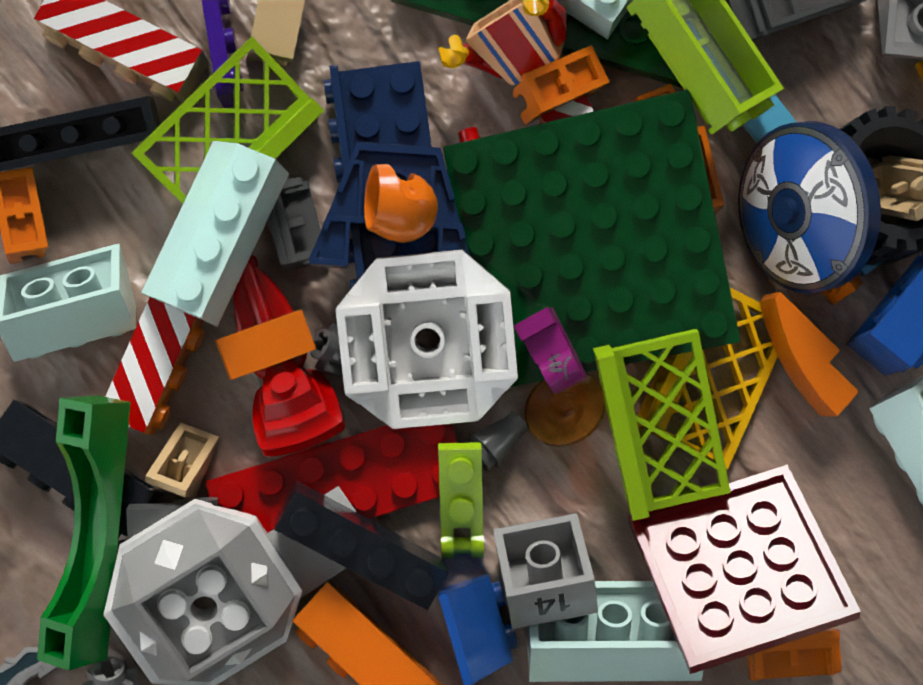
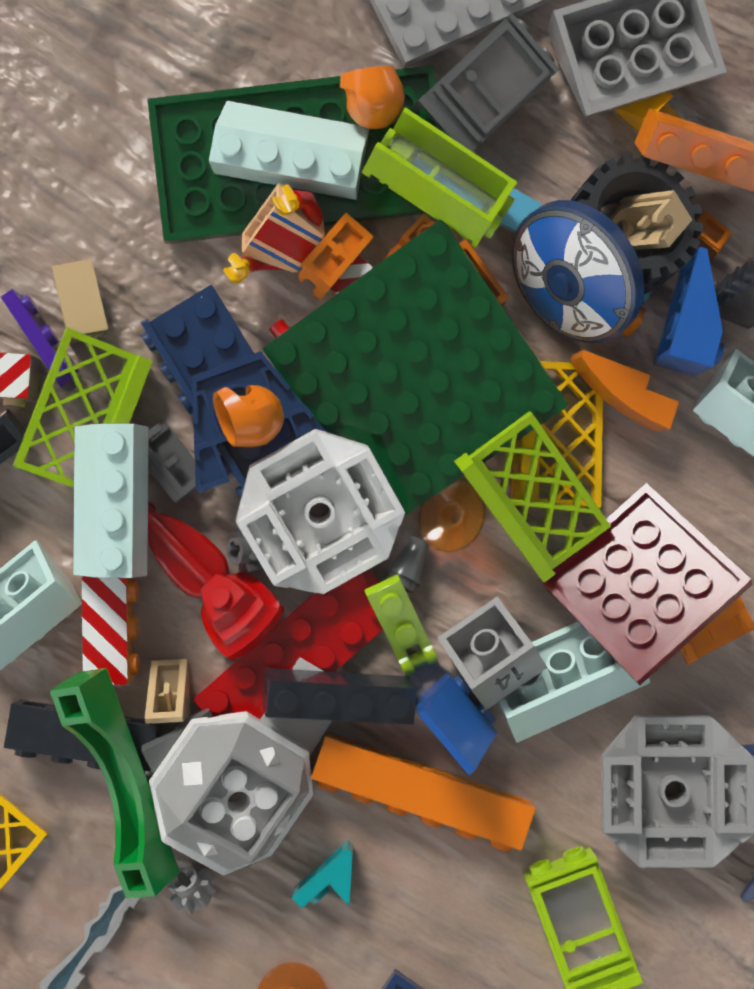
camera: 25 degrees left, 5 degrees up
(265, 344) = (192, 572): orange slope -> none
(551, 349) = (422, 477): magenta leg -> none

